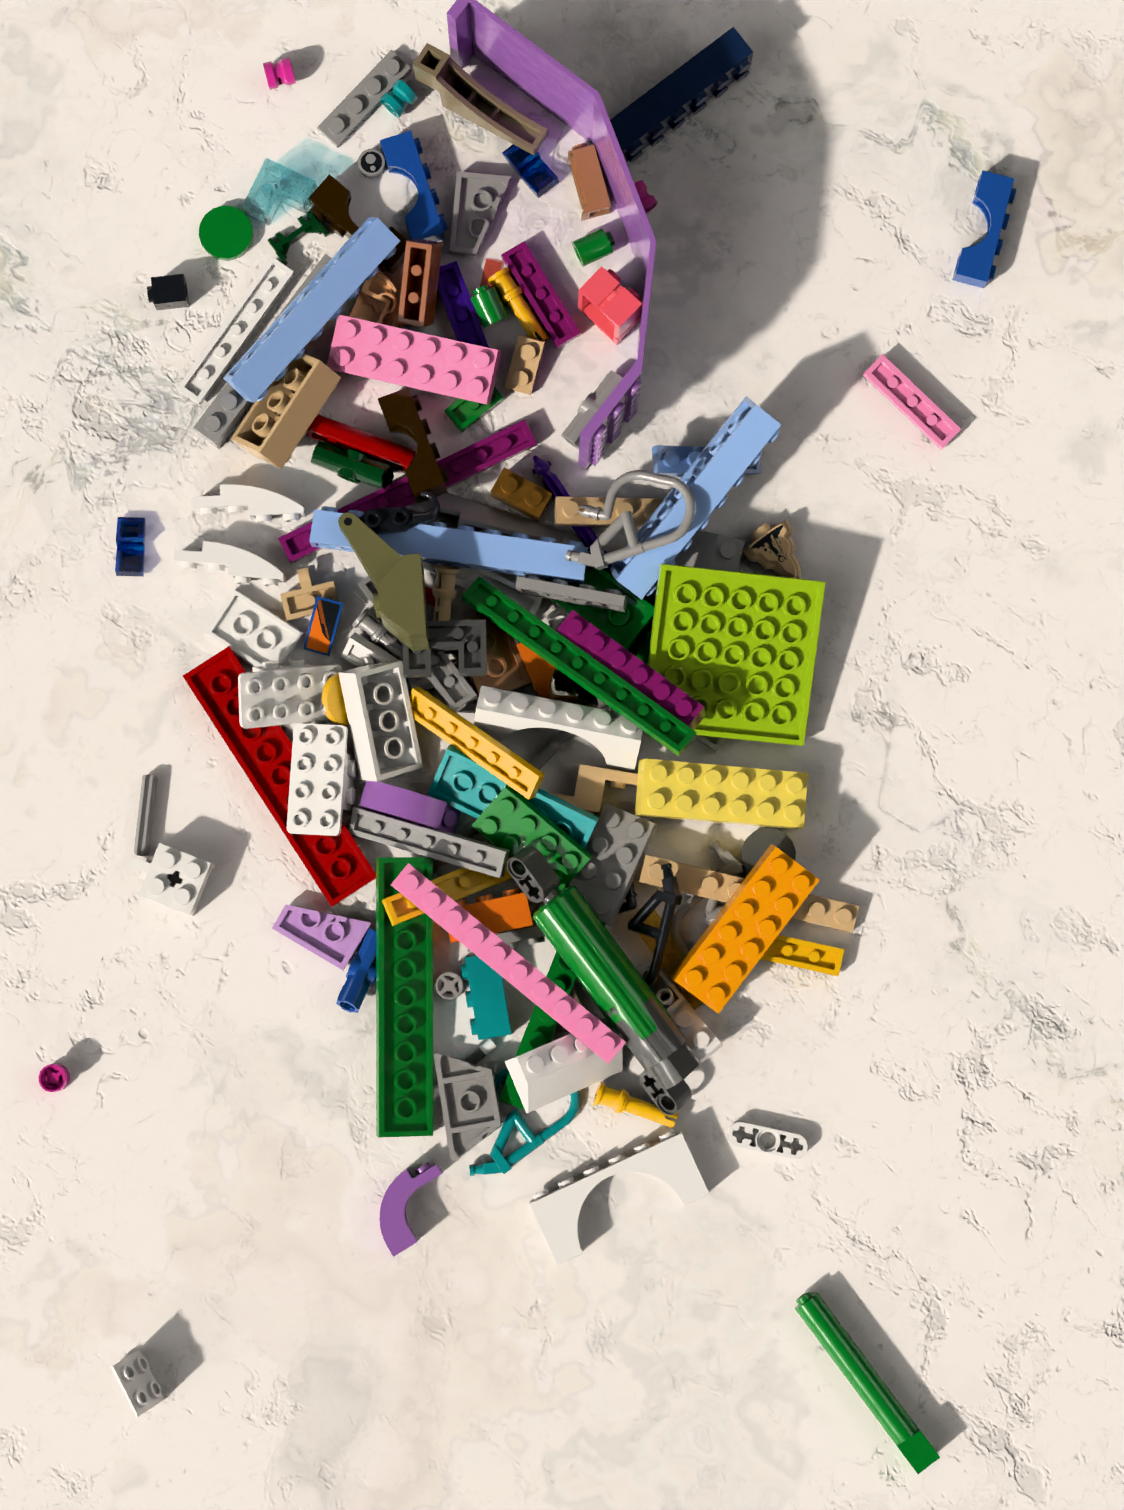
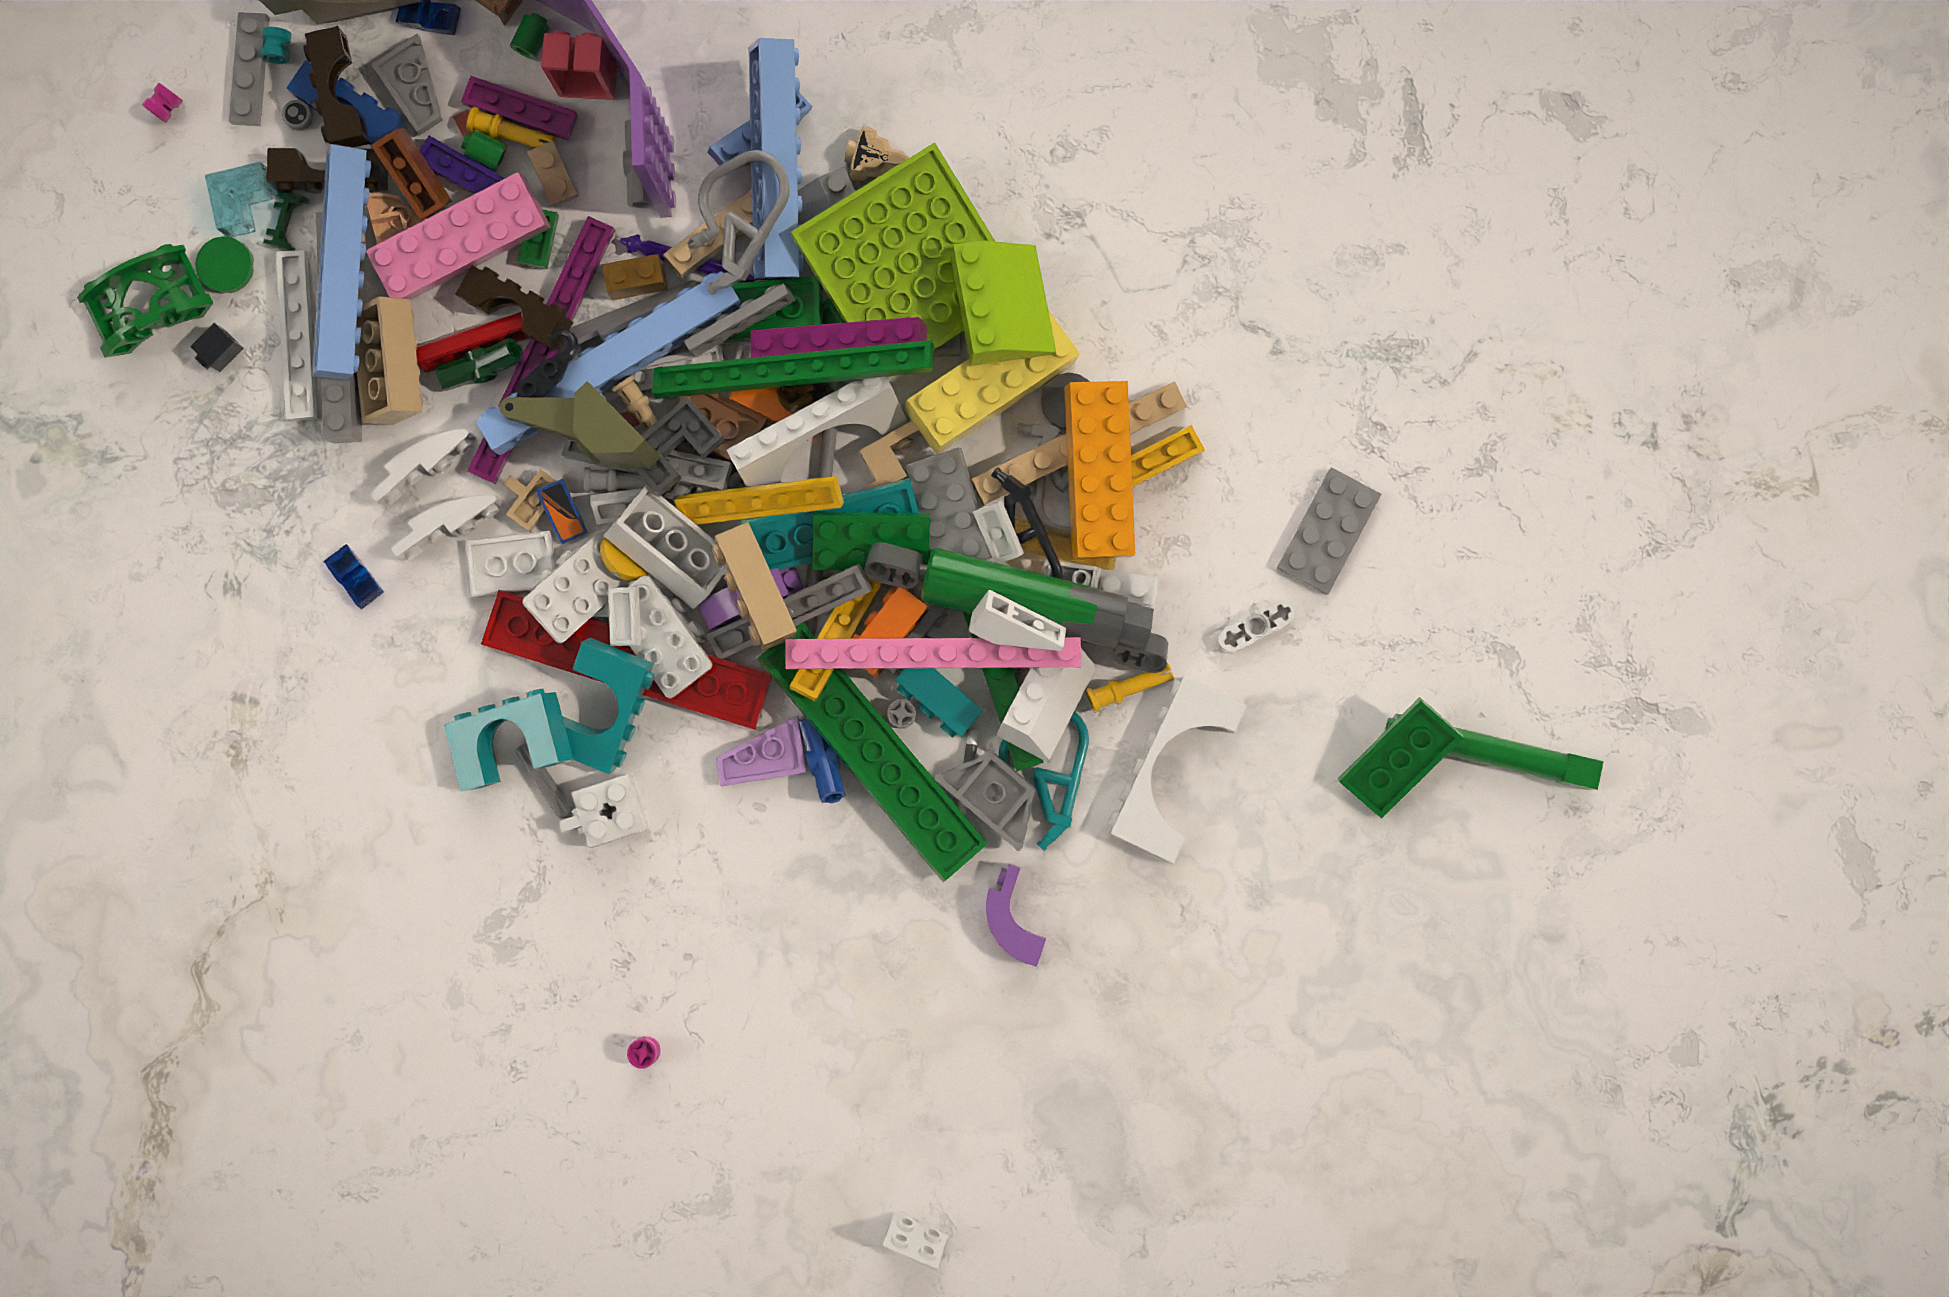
camera: 30 degrees left, 0 degrees up
(169, 241) = (125, 337): none -> green fence
(179, 766) = (473, 735): none -> arch
(269, 793) = (628, 679): none -> teal arch
(304, 745) = (624, 616): none -> white tile
(417, 806) = (755, 587): none -> tan brick
(430, 144) = (329, 56): none -> dark brown arch
(584, 993) = (1014, 625): none -> white slope
(631, 912) = (998, 532): none -> white plate
(776, 743) = (1002, 301): none -> lime slope
(790, 1328) = (1400, 757): none -> green plate
(881, 1114) = (1329, 531): none -> light grey plate

